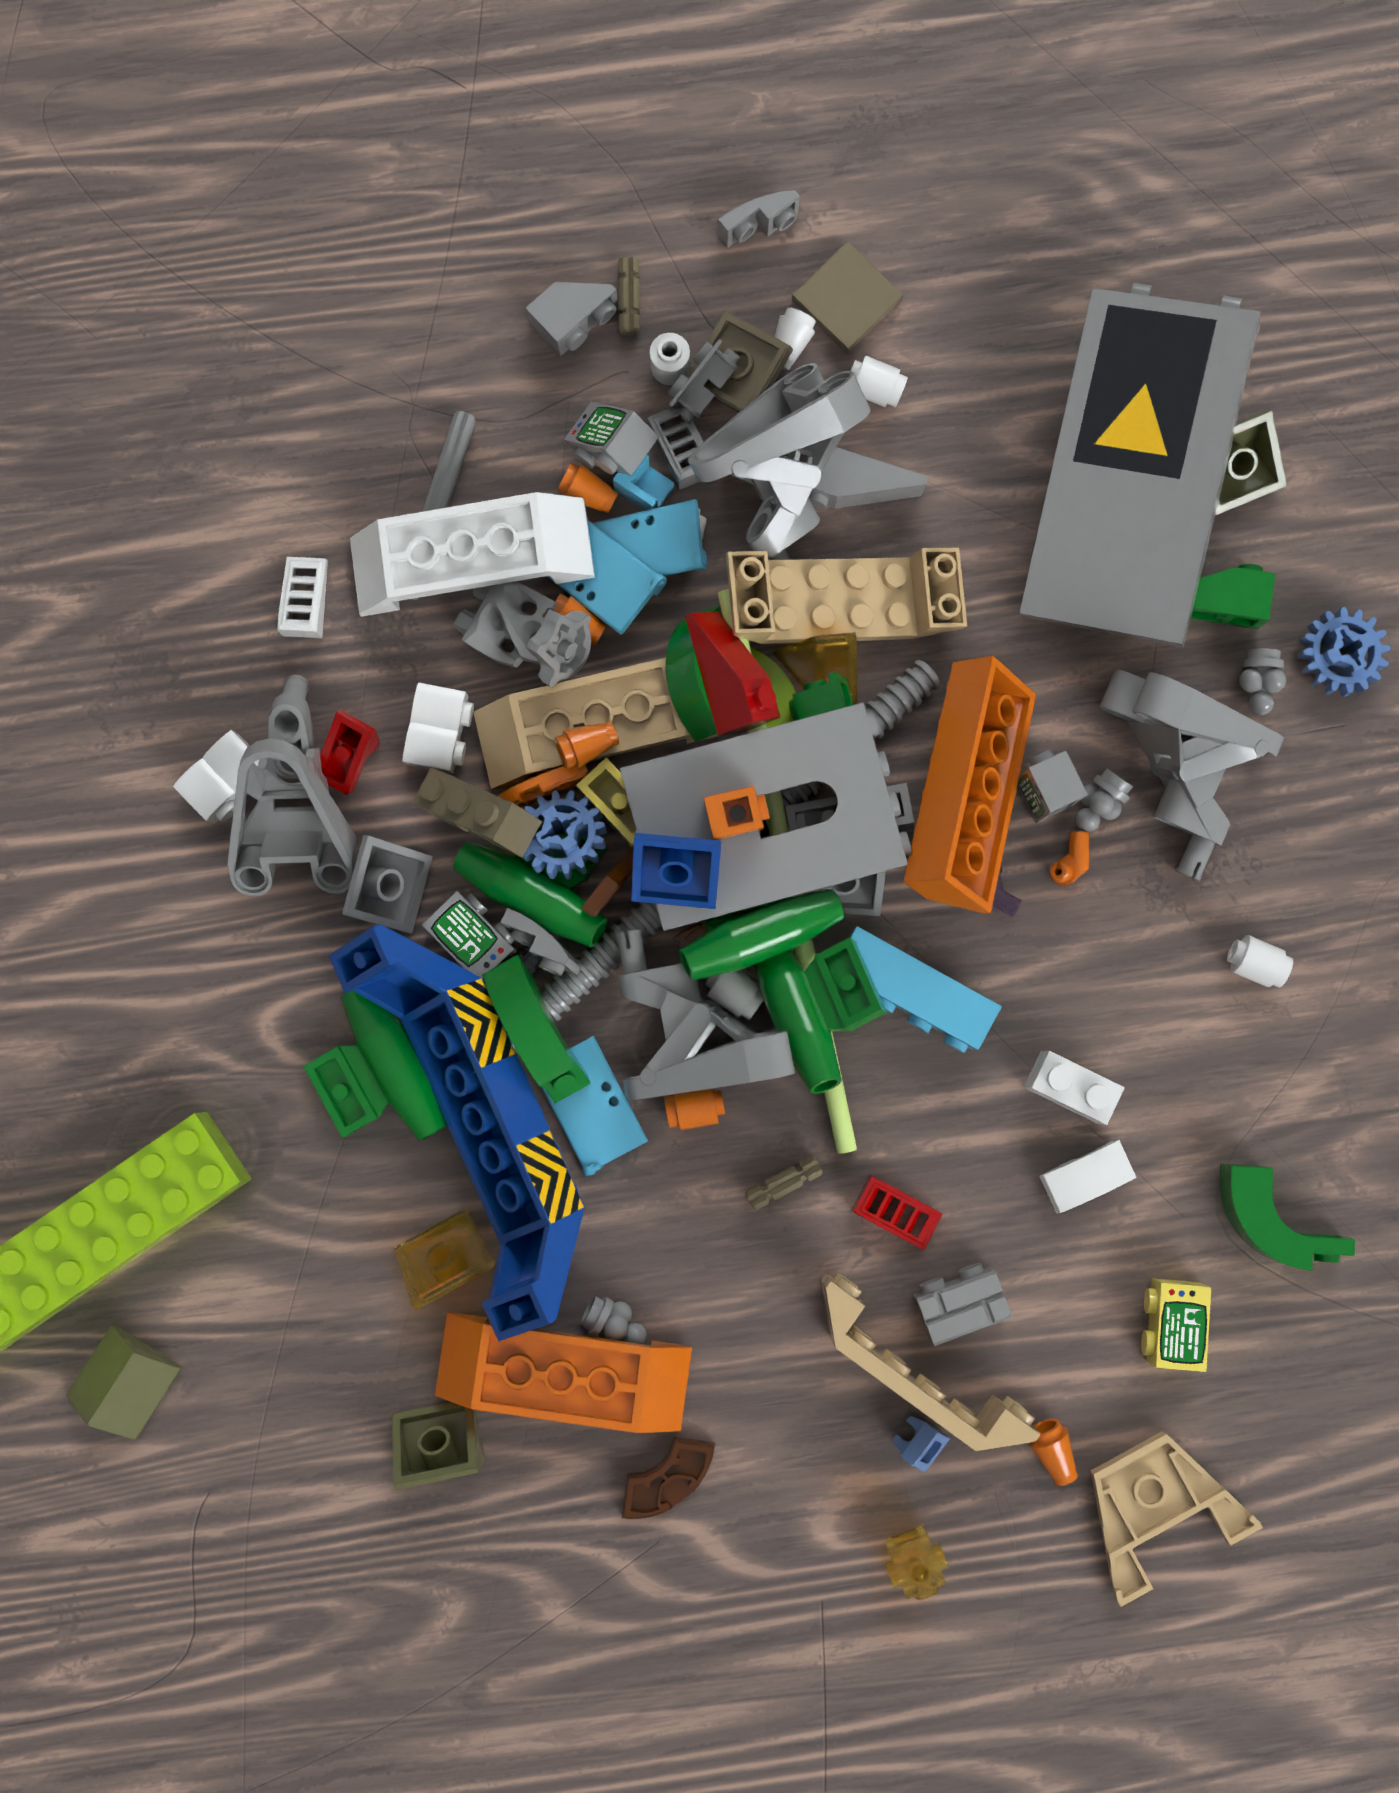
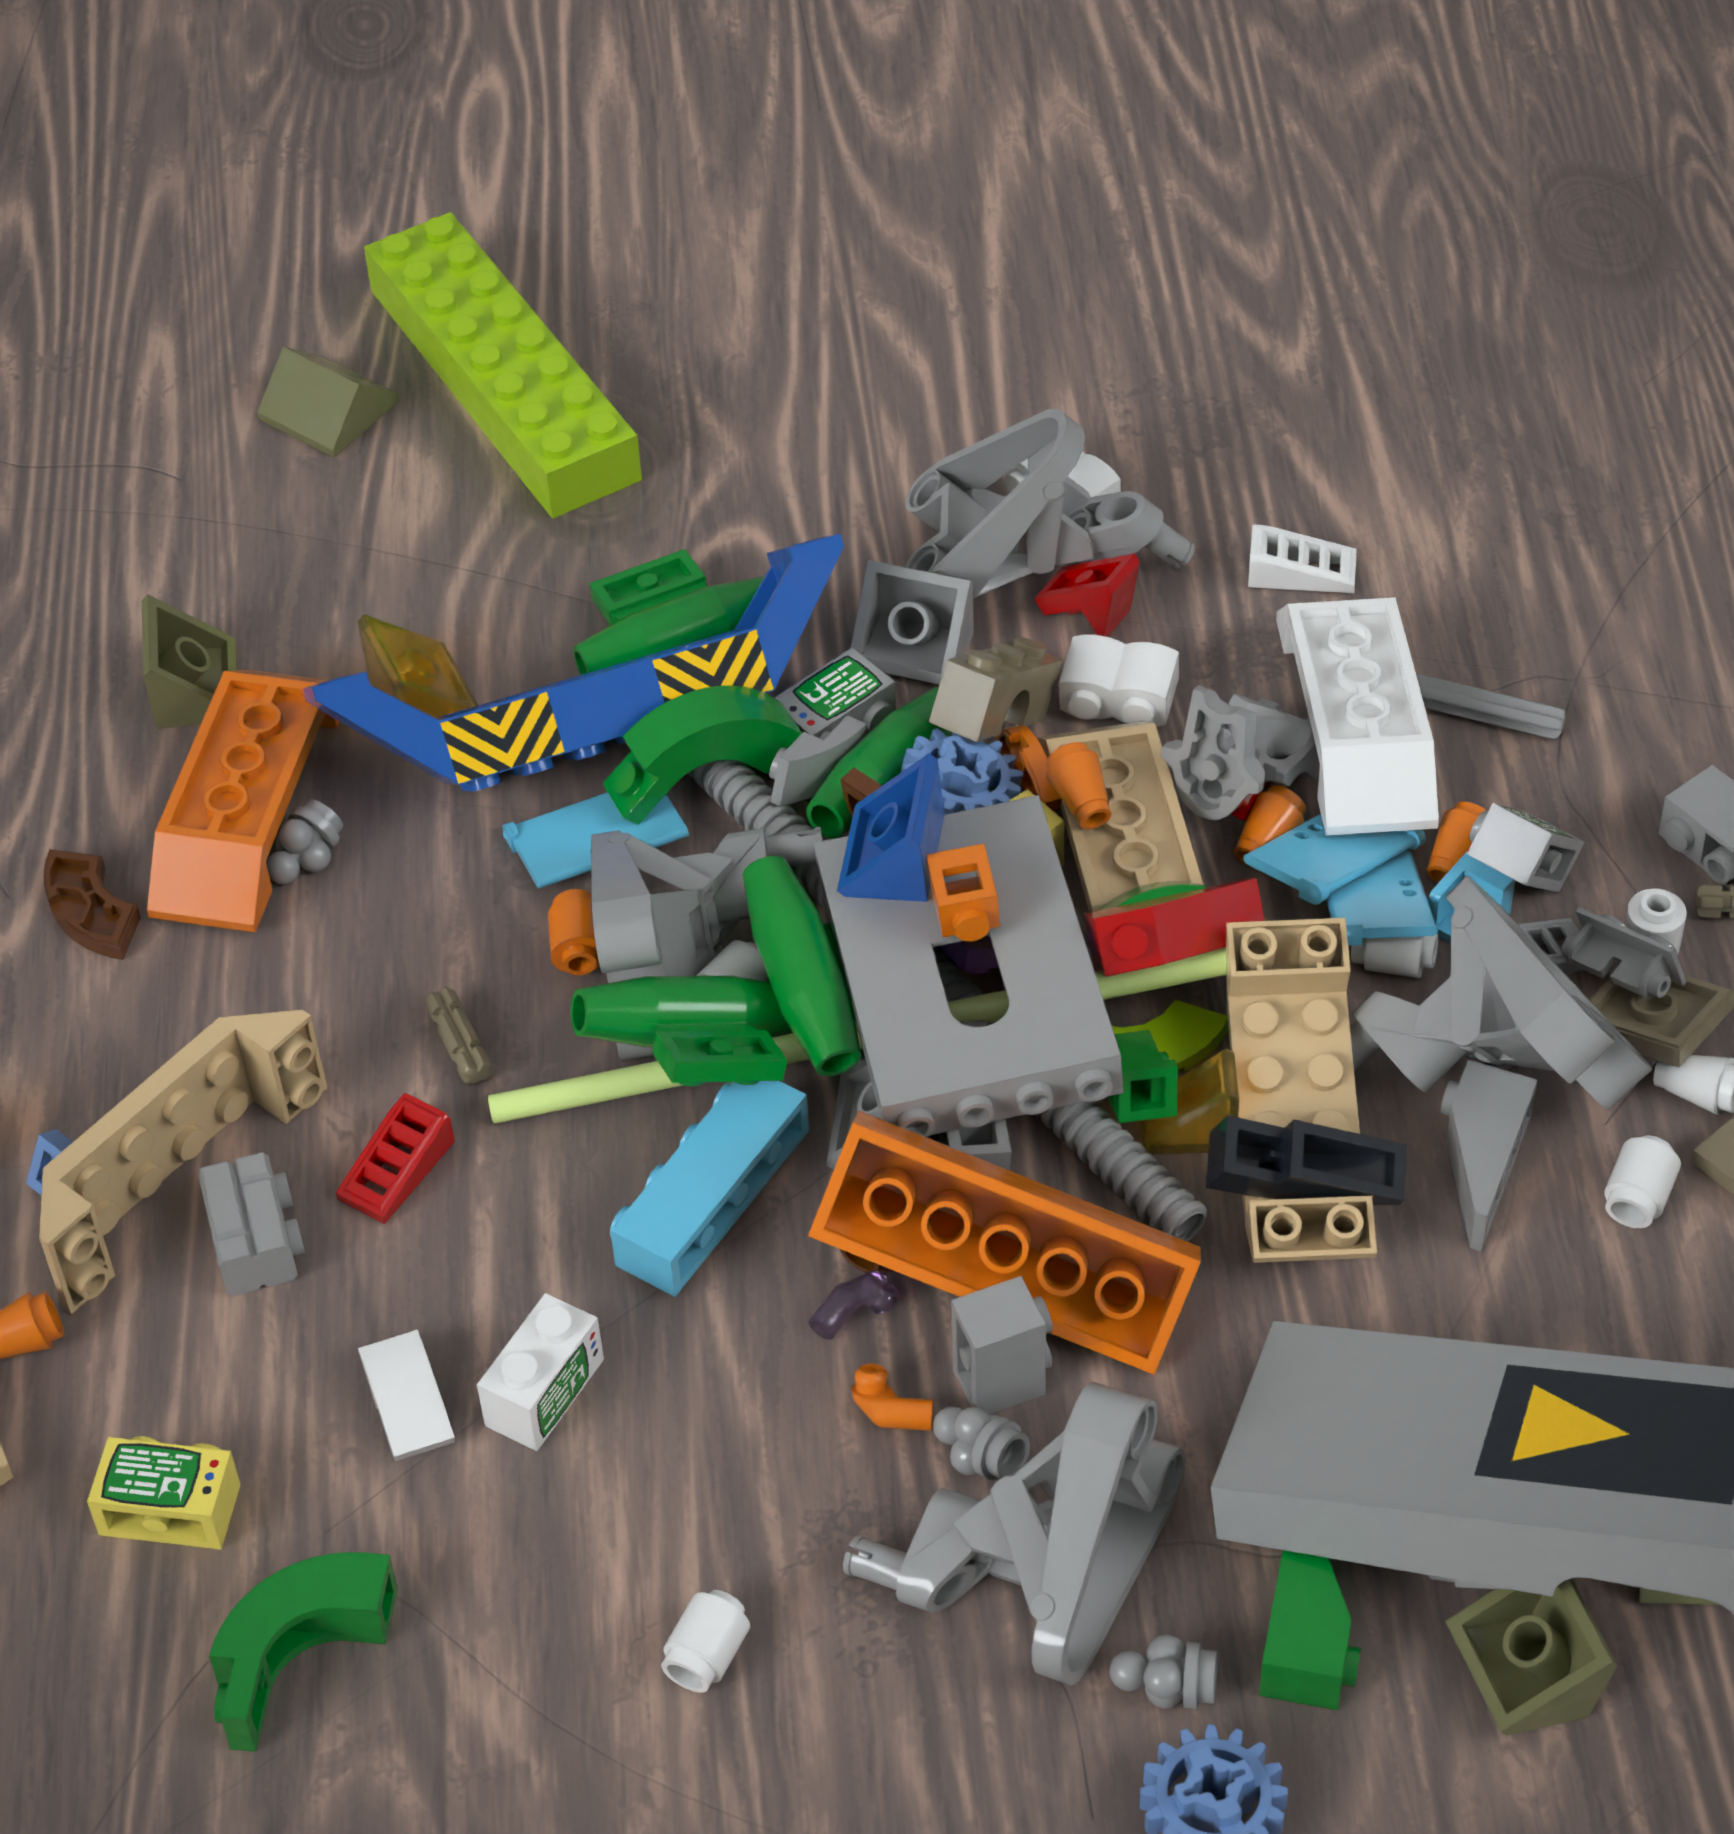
camera: 95 degrees right, 35 degrees down
(899, 591) = (1303, 1162): none -> black slope

